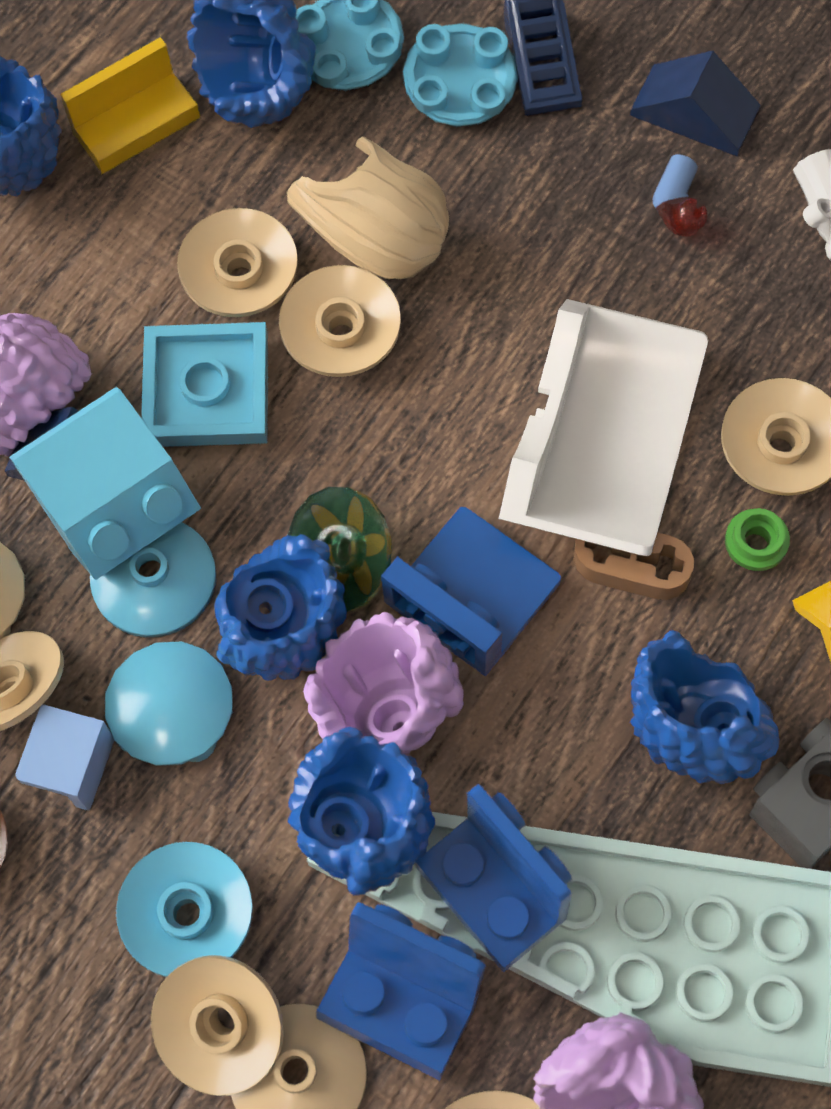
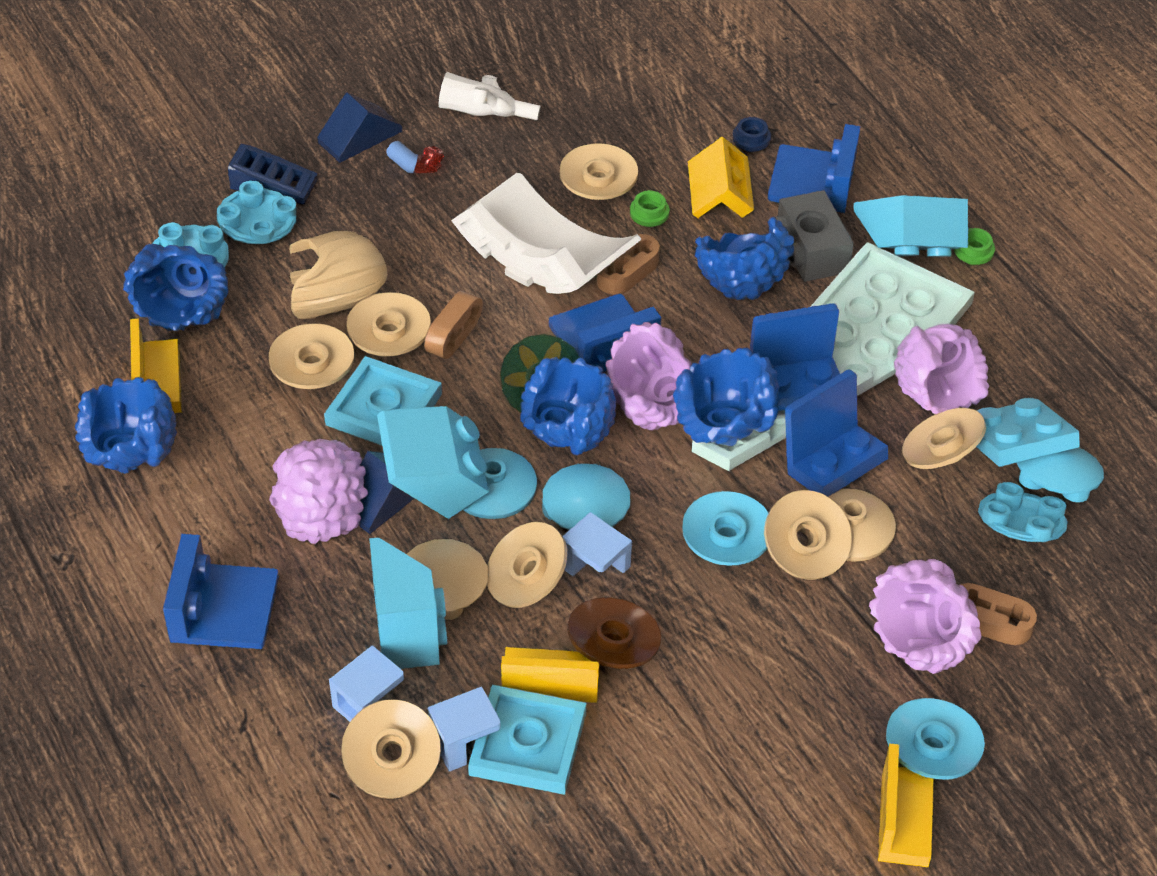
camera: 70 degrees left, 20 degrees down
(384, 396) = (453, 324): none -> medium nougat beam

